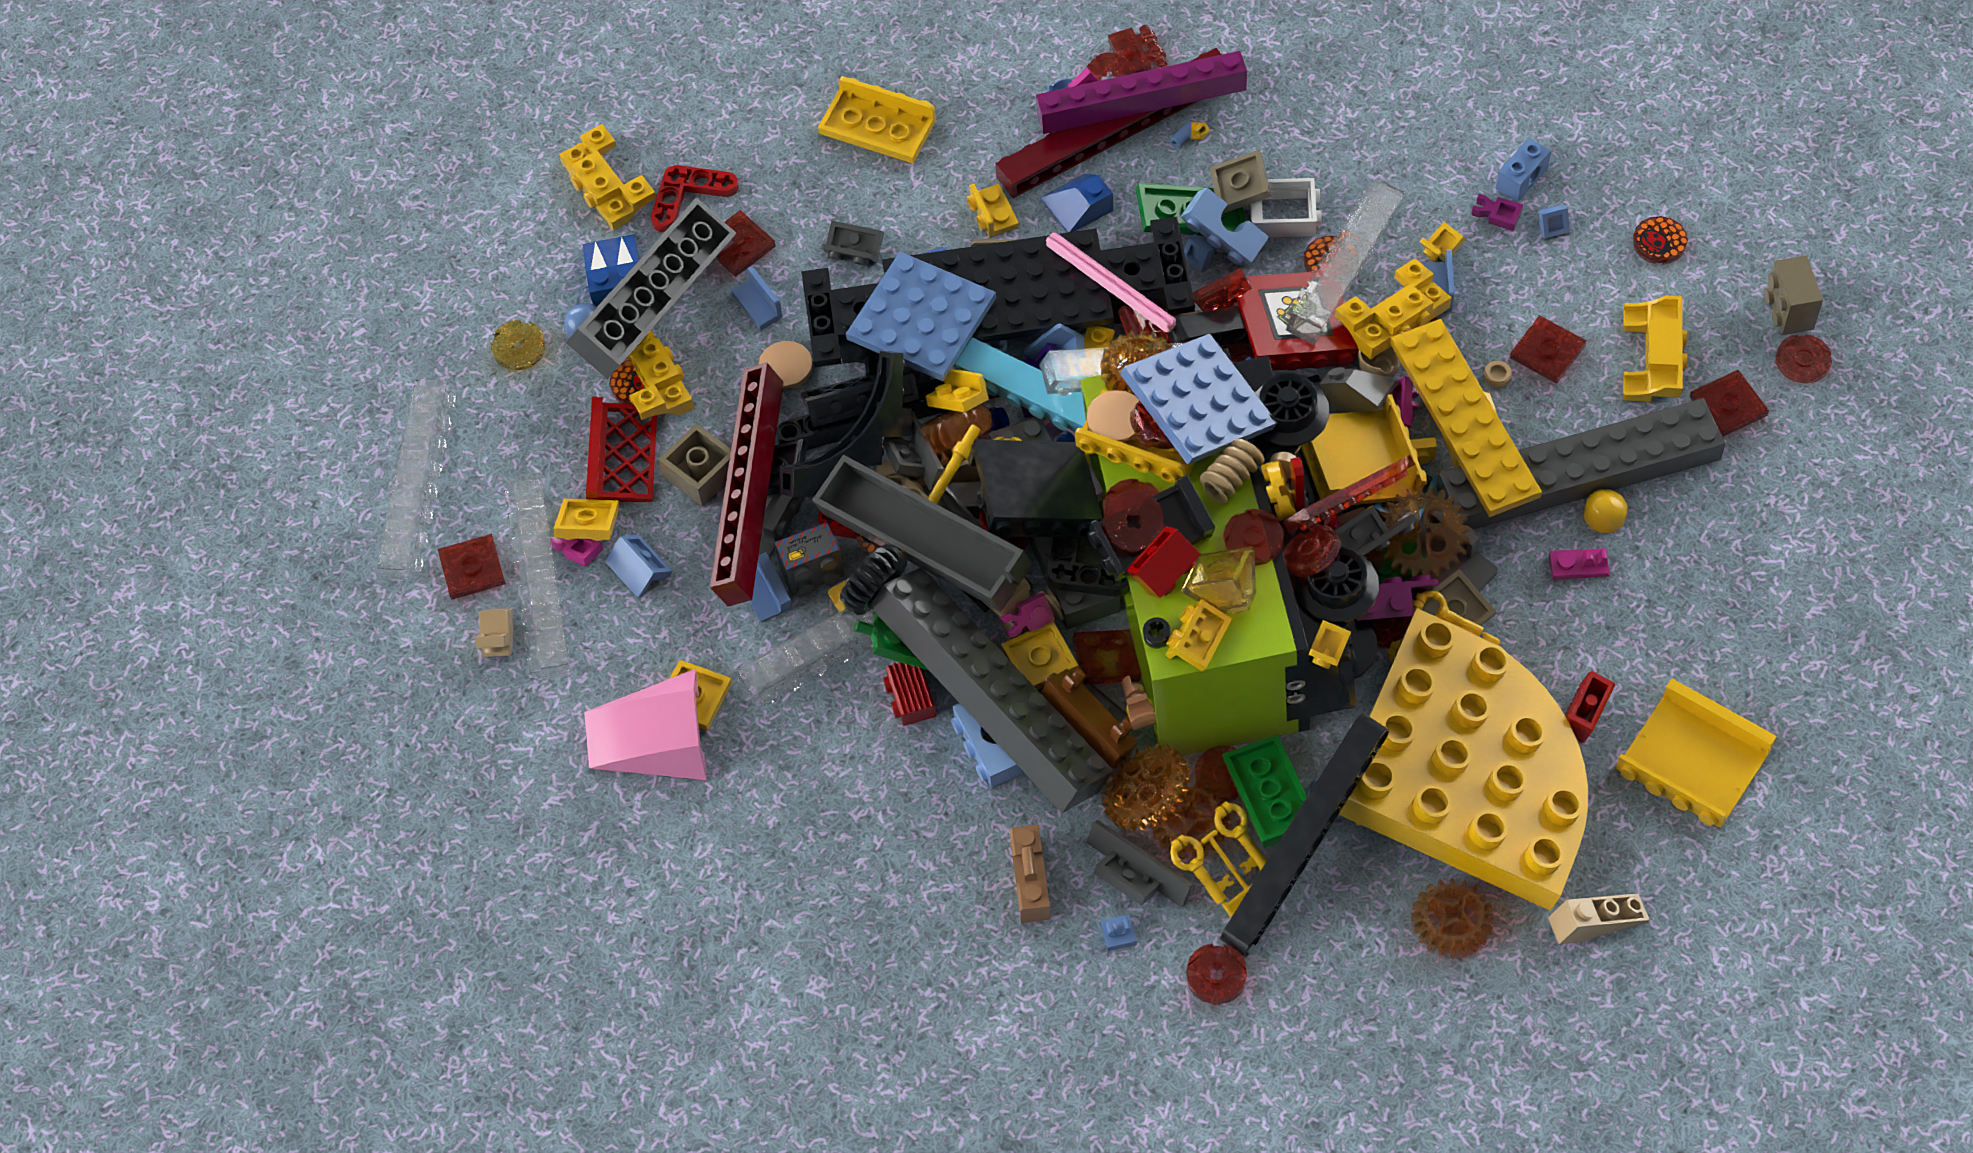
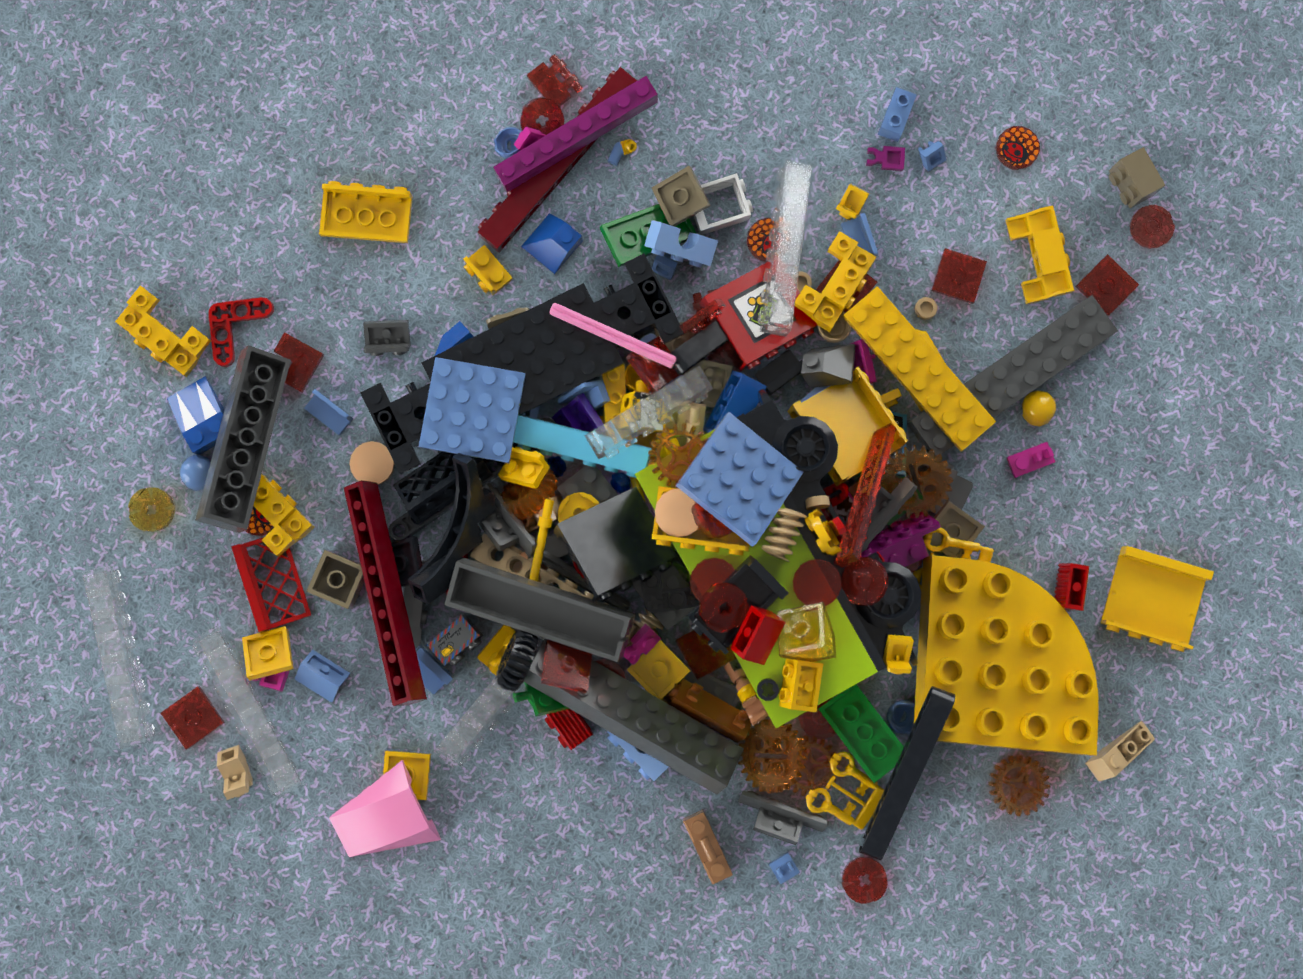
camera: 25 degrees left, 25 degrees up
(930, 595) = (566, 667): none -> clear red plate

